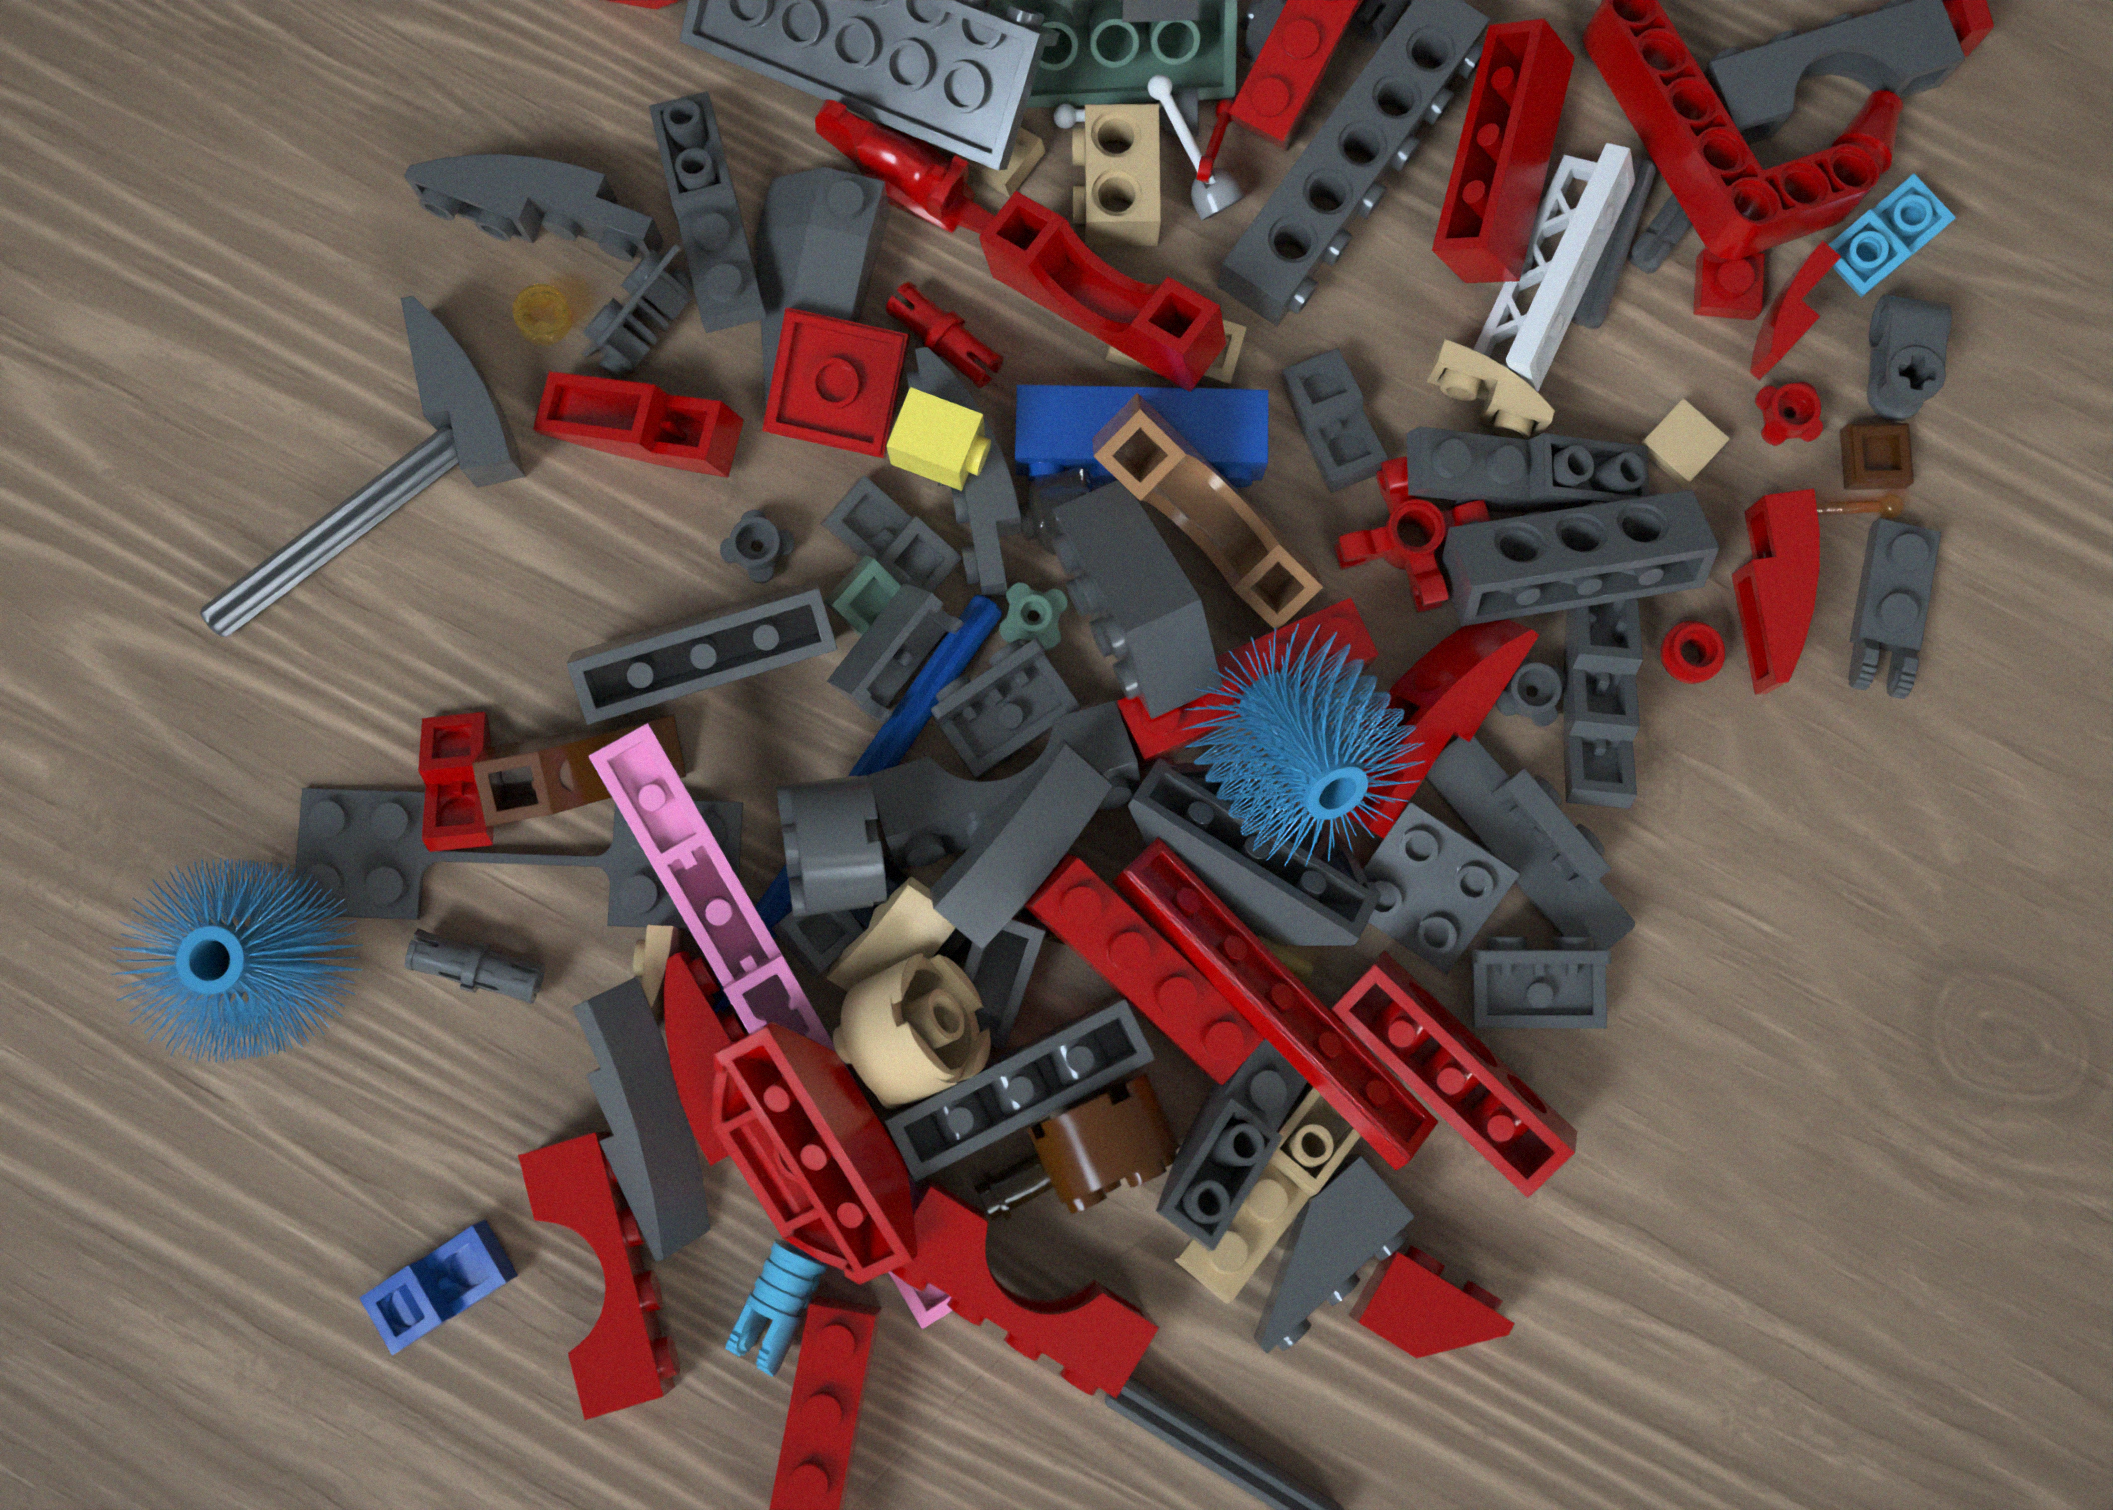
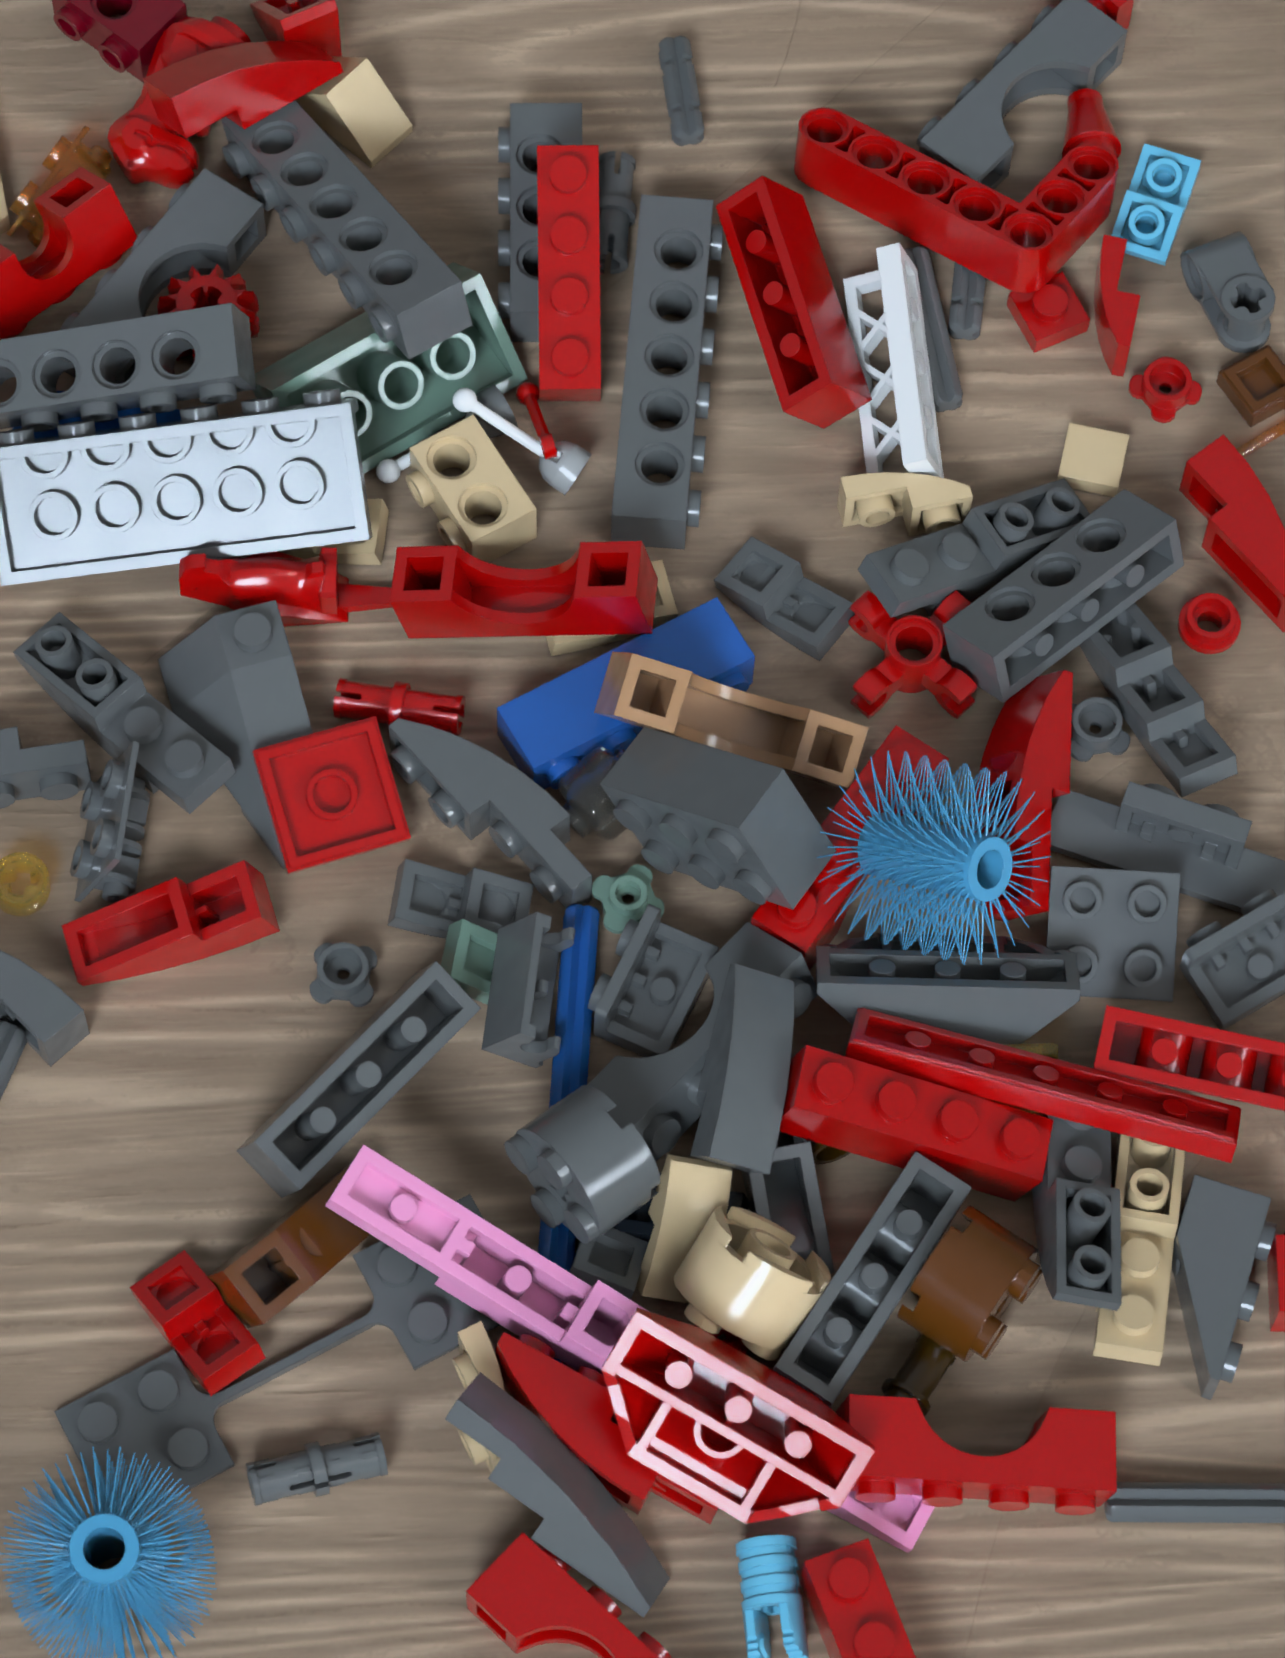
camera: 30 degrees left, 15 degrees down
(938, 439) = (464, 783): light yellow brick -> none

